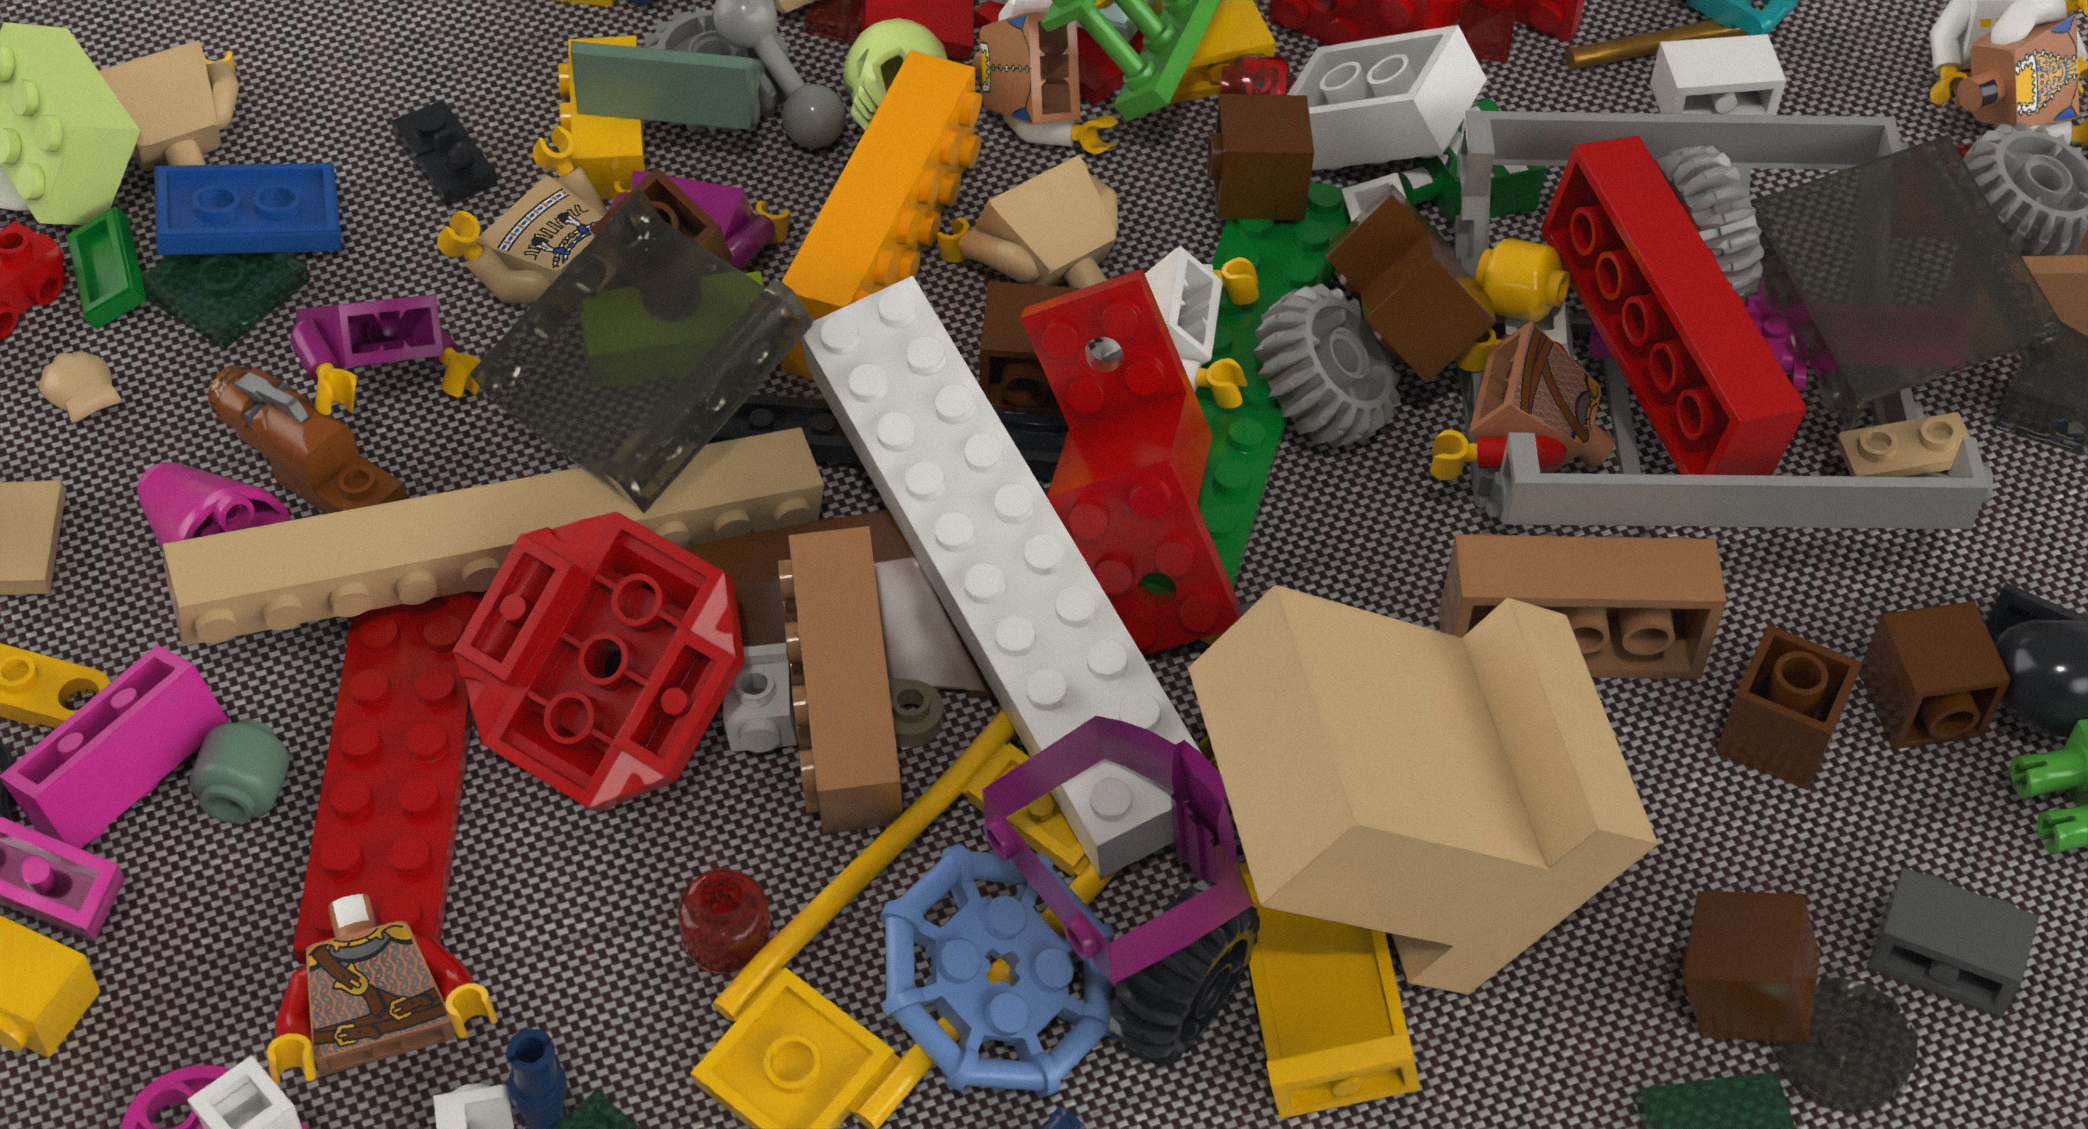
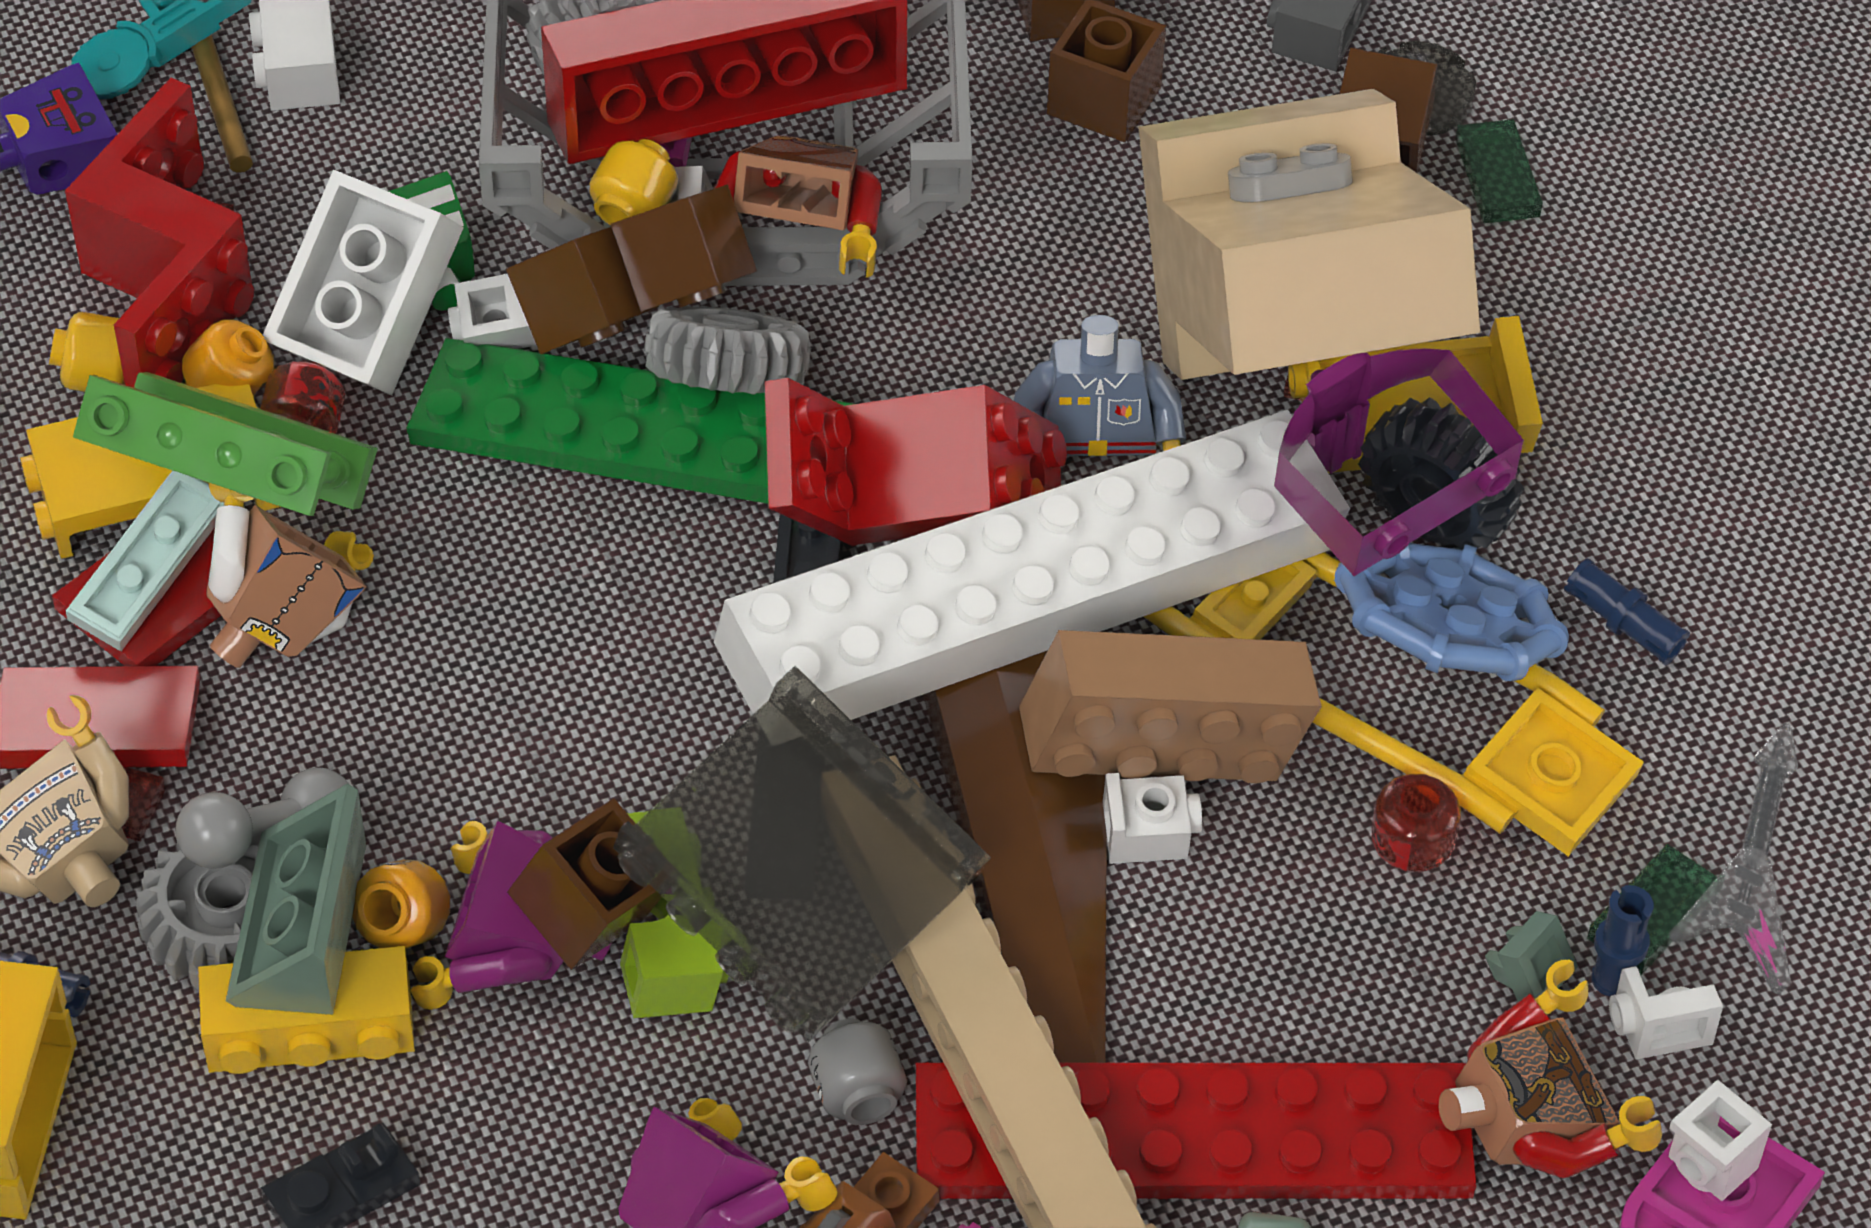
camera: 90 degrees left, 0 degrees up
(494, 458) = (857, 1071): none -> light grey head
(535, 236) = (514, 1043): tan torso -> none
(543, 646) = (1203, 865): red piece -> none
(557, 1013) = (1530, 954): none -> sand green tile
(697, 153) = (401, 904): none -> light orange head
(877, 59) = (258, 729): yellowish green helmet -> none
(889, 192) = (499, 712): light orange brick -> none
(1008, 363) = (683, 594): reddish brown head -> none
(1042, 229) = (513, 582): tan torso -> none
(1189, 305) = (681, 470): white torso -> none
(1261, 156) = (448, 379): reddish brown head -> none
(1296, 32) = (228, 356): none -> light orange head
(1484, 733) = (1268, 178): none -> light grey plate
(1629, 599) = (1013, 191): medium nougat brick -> none

